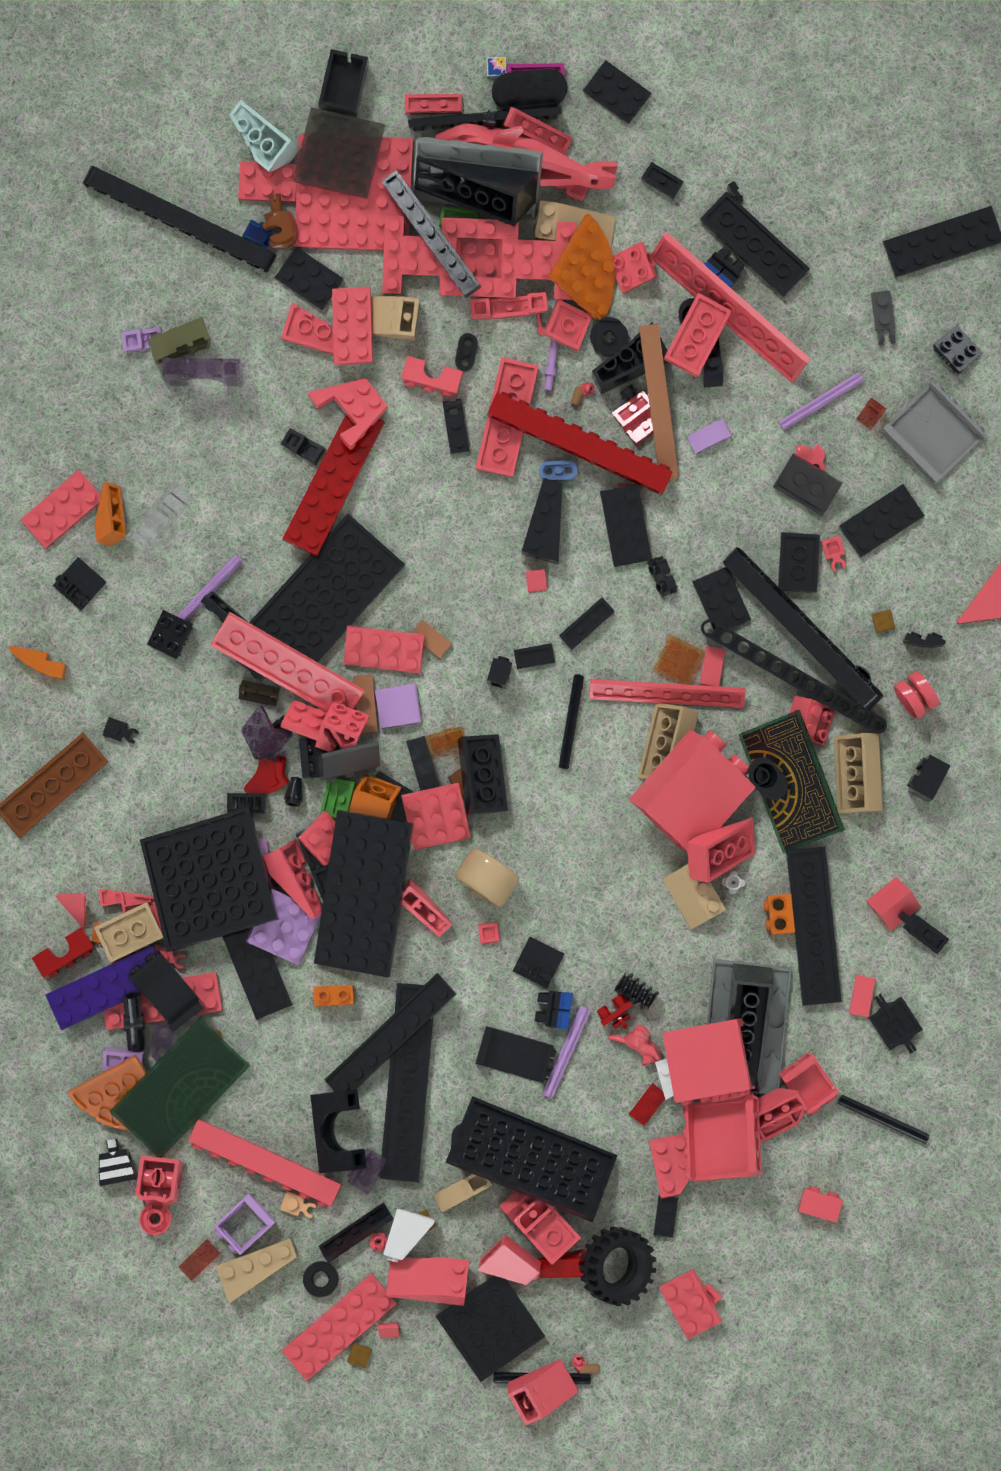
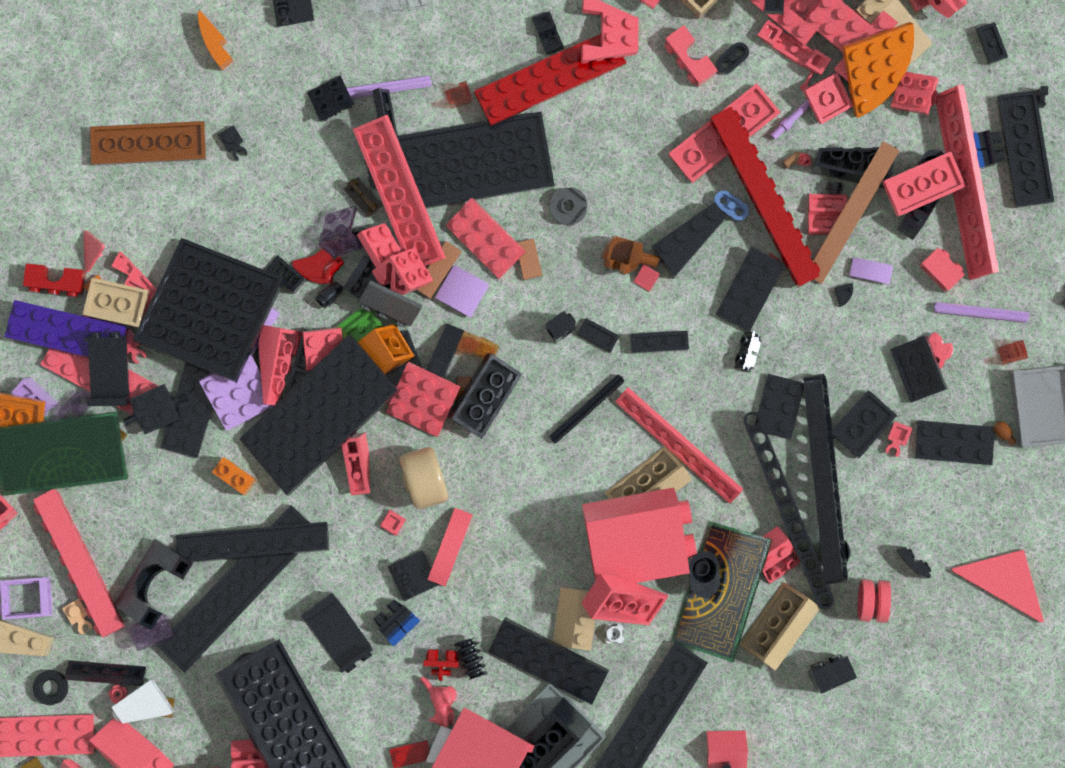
camera: 35 degrees right, 0 degrees up
(133, 1022) = (64, 374): black piece -> none
(228, 992) = (154, 409): none -> black plate
(271, 552) = (459, 95): none -> clear red panel
(436, 580) = (568, 195): none -> dark grey plate
(456, 427) = (678, 110): black plate -> none
(461, 1191) = (210, 706): tan slope -> none
(506, 575) = (626, 255): none -> dark orange piece
(550, 916) = (450, 547): none -> coral slope
(566, 1052) = (379, 662): lavender axle -> none
(601, 328) = (853, 121): black plate -> none
(678, 660) = (708, 427): clear orange plate -> none
(698, 944) = (548, 660): none -> black plate
(702, 471) = (843, 293): none -> black tile
(712, 666) = (731, 452): coral tile -> none
(764, 391) = (942, 269): none -> coral brick
(785, 914) = (634, 690): orange brick -> none
(883, 621) = (894, 522): pearl gold tile -> none
(913, 482) = (1004, 432): none -> dark orange cylinder

